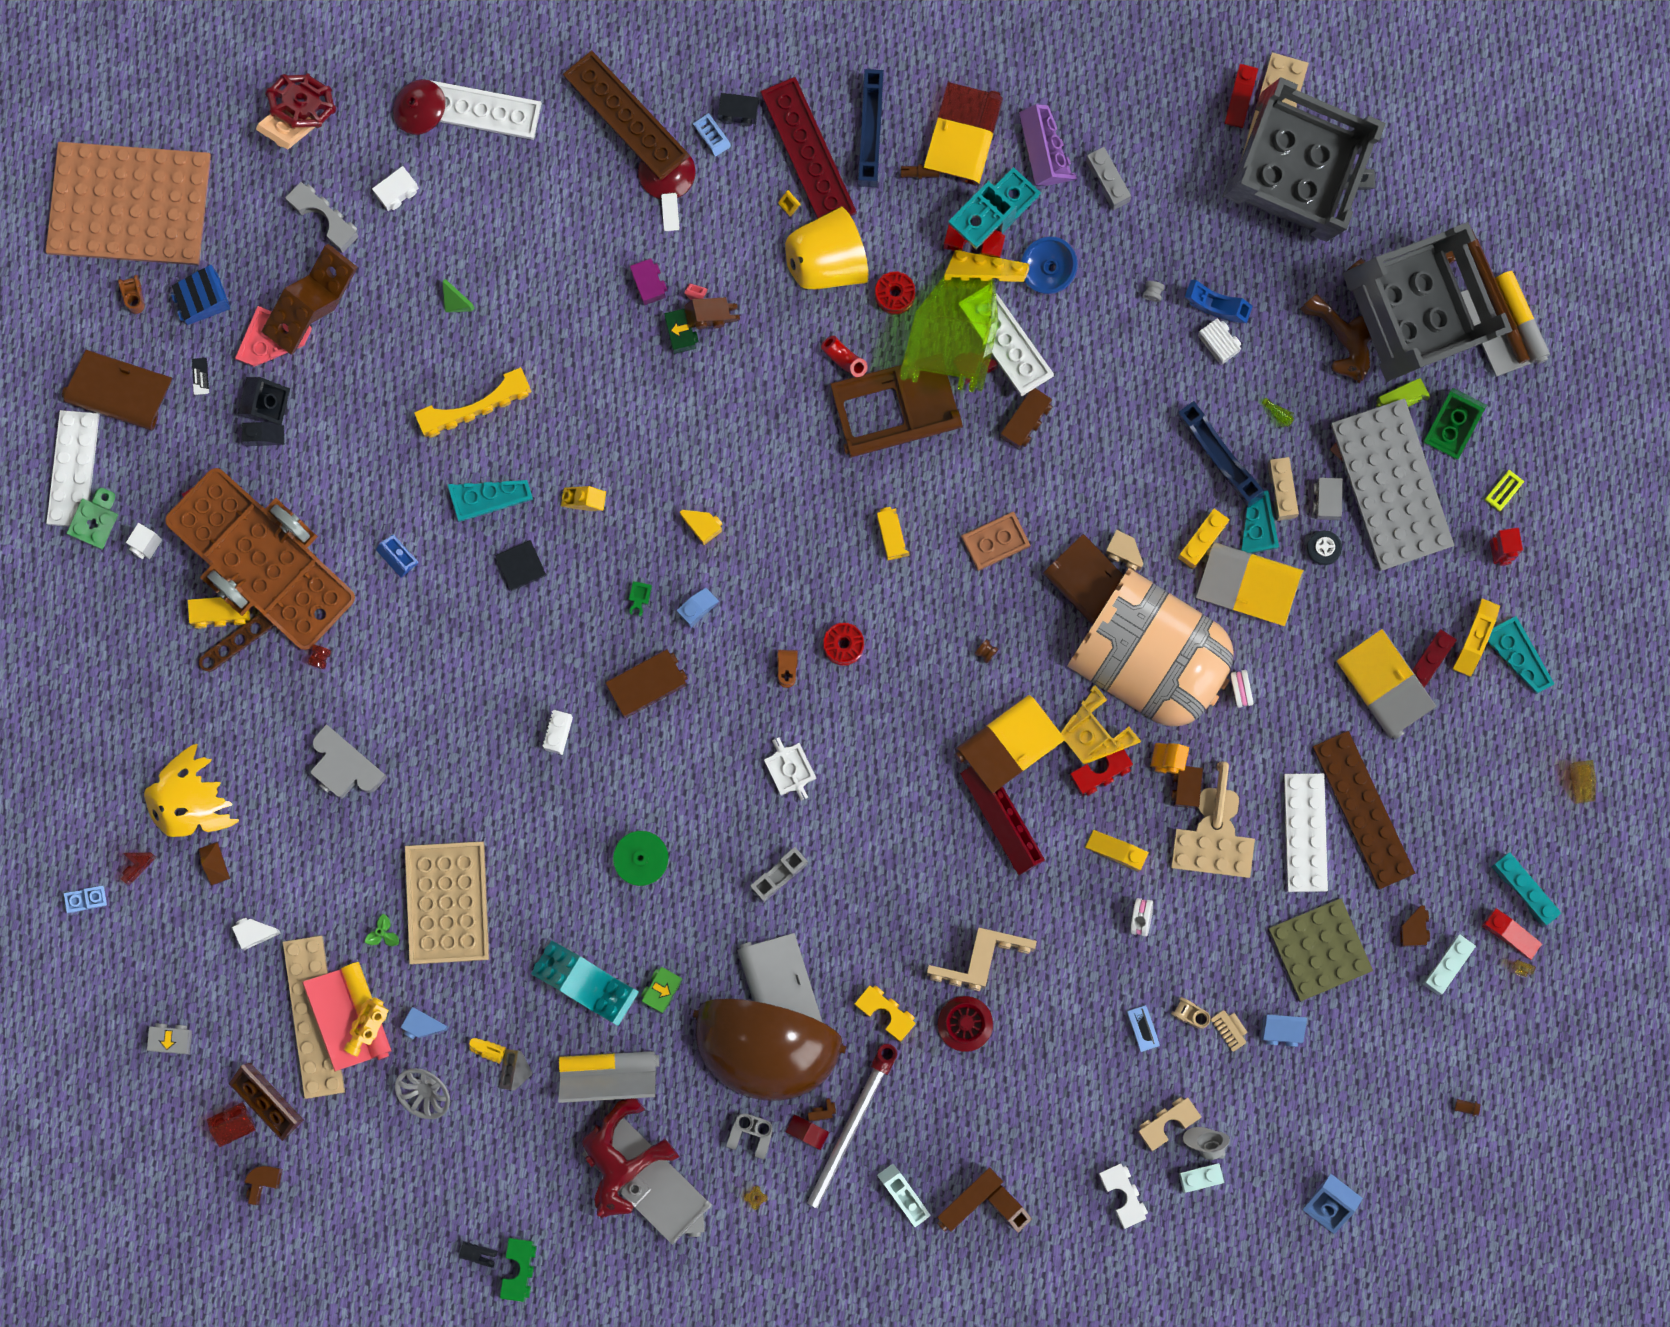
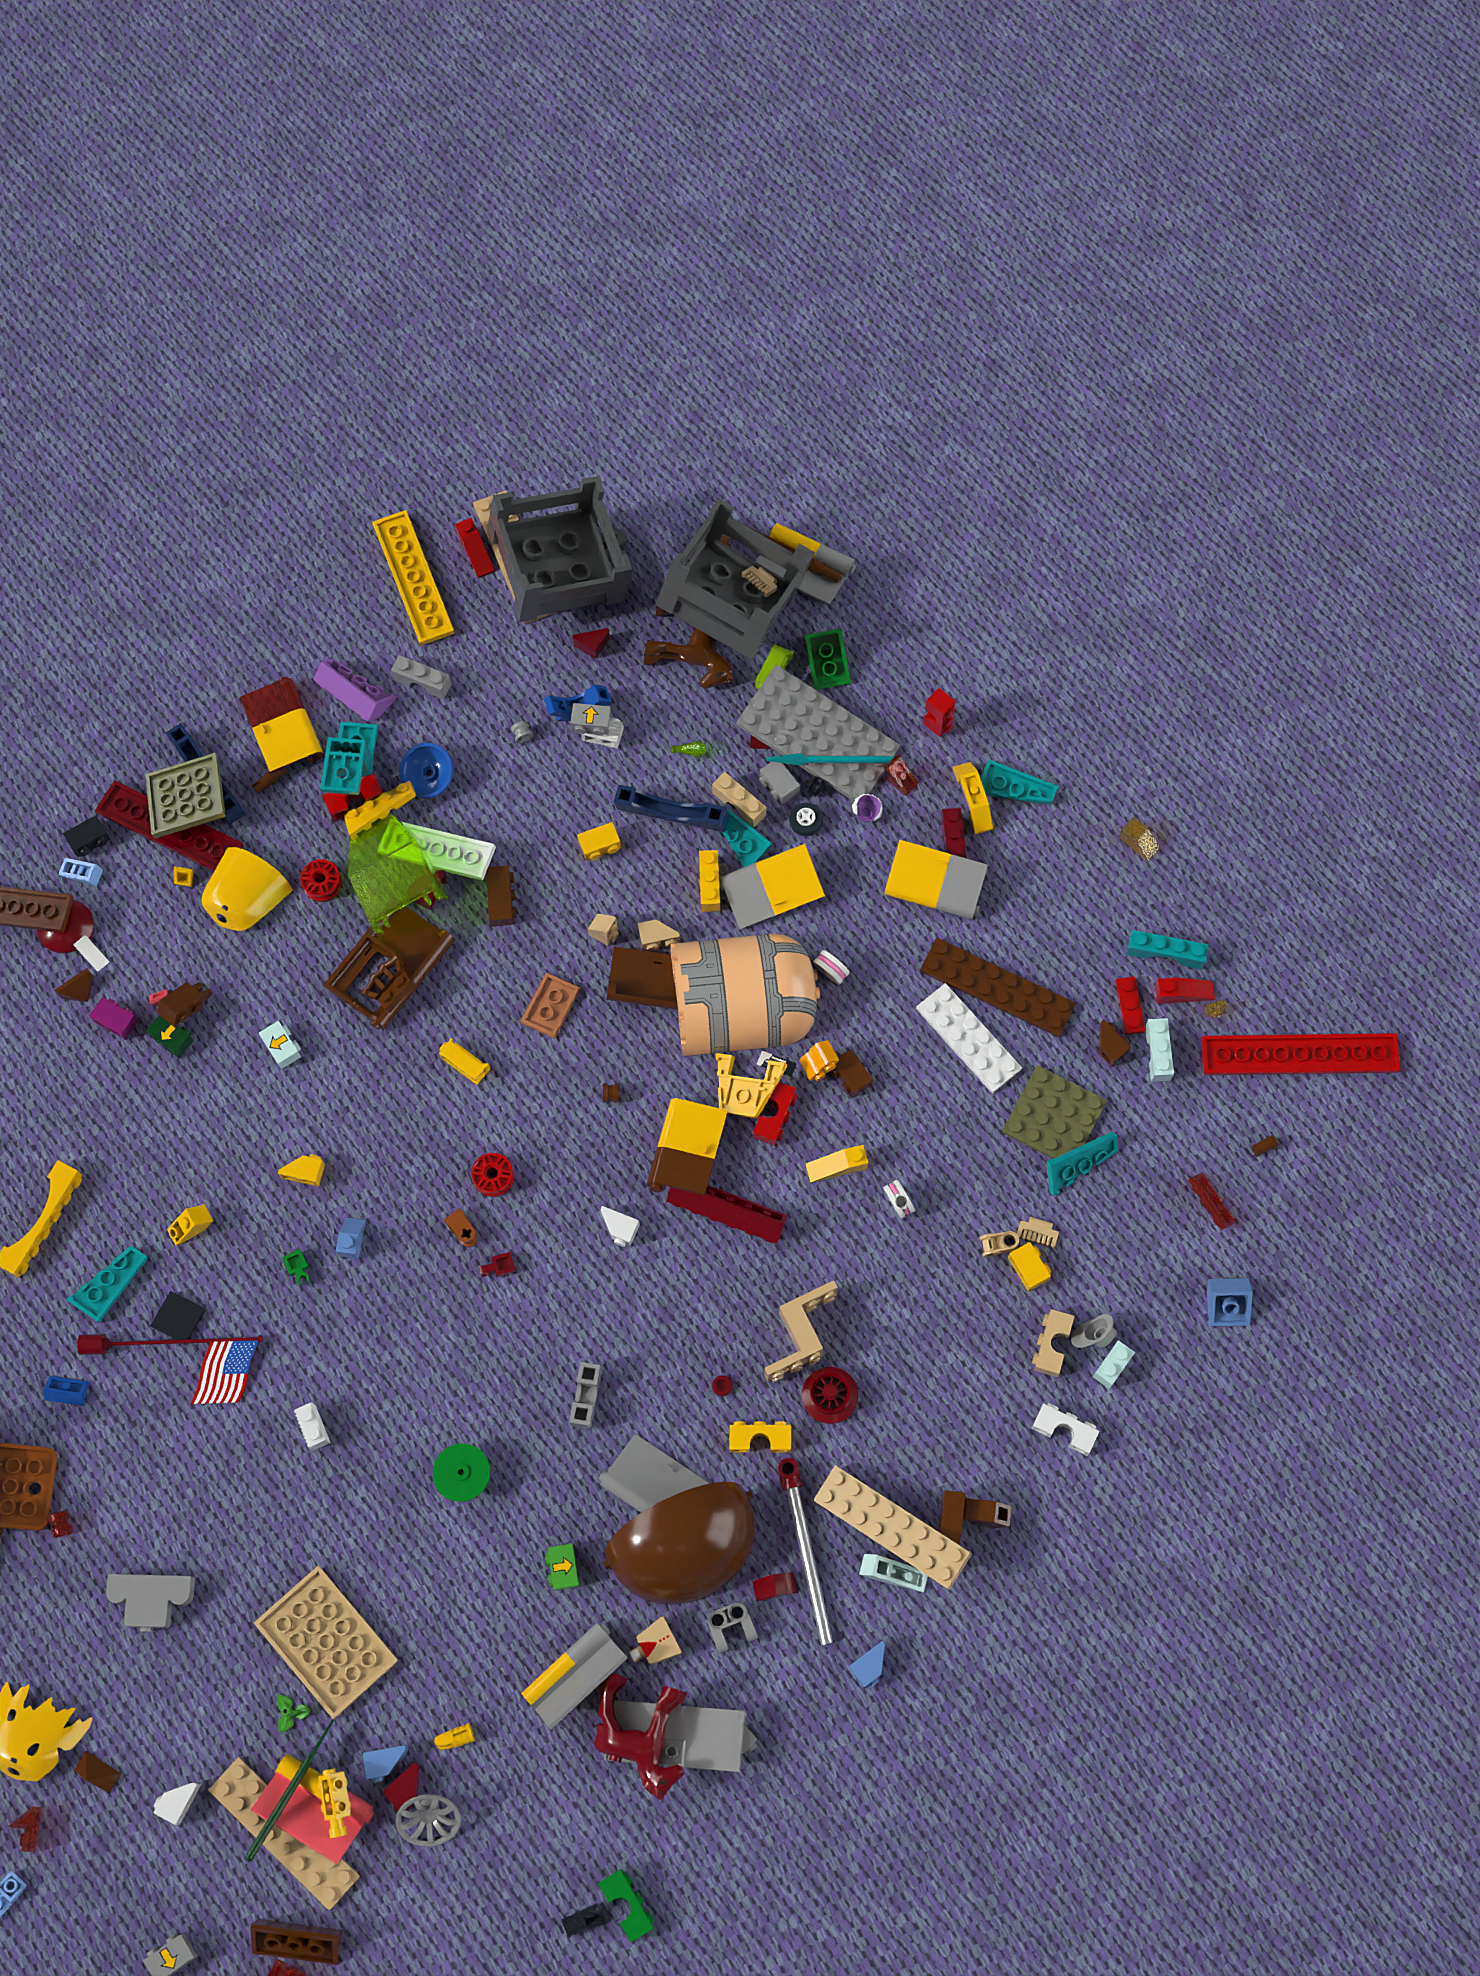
camera: 40 degrees left, 10 degrees down
(332, 994) = (284, 1799): none -> dark green piece
(423, 1056) = (404, 1787): none -> dark red slope
(514, 1070) = (491, 1735): flat silver slope -> none
(524, 633) = (222, 1371): none -> flag
(584, 982) = (494, 1612): teal bracket -> none
(638, 234) = (77, 988): none -> reddish brown slope
(647, 683) = (356, 1329): reddish brown brick -> none
(686, 1102) = (656, 1644): none -> tan torso
(755, 1192) = (781, 1671): clear yellow plate -> none
(759, 406) = (280, 1045): none -> light aqua brick
(790, 769) = (527, 1305): white plate -> none
(794, 721) = (501, 1265): none -> dark red plate
(819, 1114) = (773, 1563): reddish brown bracket -> none
(829, 1247) = (869, 1666): none -> medium blue slope
(840, 137) = (185, 795): none -> olive plate
(844, 357) = (318, 957): red cylinder -> none
(886, 433) = (395, 989): none -> reddish brown plate
(889, 950) = (722, 1386): none -> dark red tile
(909, 765) = (621, 1227): none -> white slope
(928, 1161) = (892, 1527): none -> tan plate
(1087, 512) = (604, 928): none -> tan slope
(1133, 722) = (765, 1057): none -> sticker
(1141, 435) = (599, 841): none -> yellow brick
(1143, 1028) = (971, 1285): light blue slope -> none
(1170, 82) = (413, 577): none -> yellow plate
(1200, 1051) = (1029, 1266): none -> yellow brick
(1214, 849) = (906, 1106): tan plate -> none
(1215, 327) = (590, 719): none -> light grey brick
(1272, 256) = (592, 641): none -> dark red slope
(1283, 1029) = (1078, 1197): medium blue slope -> none
(1309, 1001) = (1079, 1161): none -> teal wing
(1355, 526) = (815, 786): none -> black wheel
(1358, 495) = (799, 759): none -> teal piece
(1382, 581) = (868, 810): none -> medium lavender hair
(1387, 1116) = (1211, 1201): none -> clear red plate
(1431, 572) = (900, 775): none -> clear red slope
(1456, 314) = (762, 577): none -> tan piece
(1457, 910) = (1130, 1005): none -> red plate
(1494, 502) = (903, 694): neon yellow tile -> none
(1560, 1059) = (1300, 1054): none -> red plate

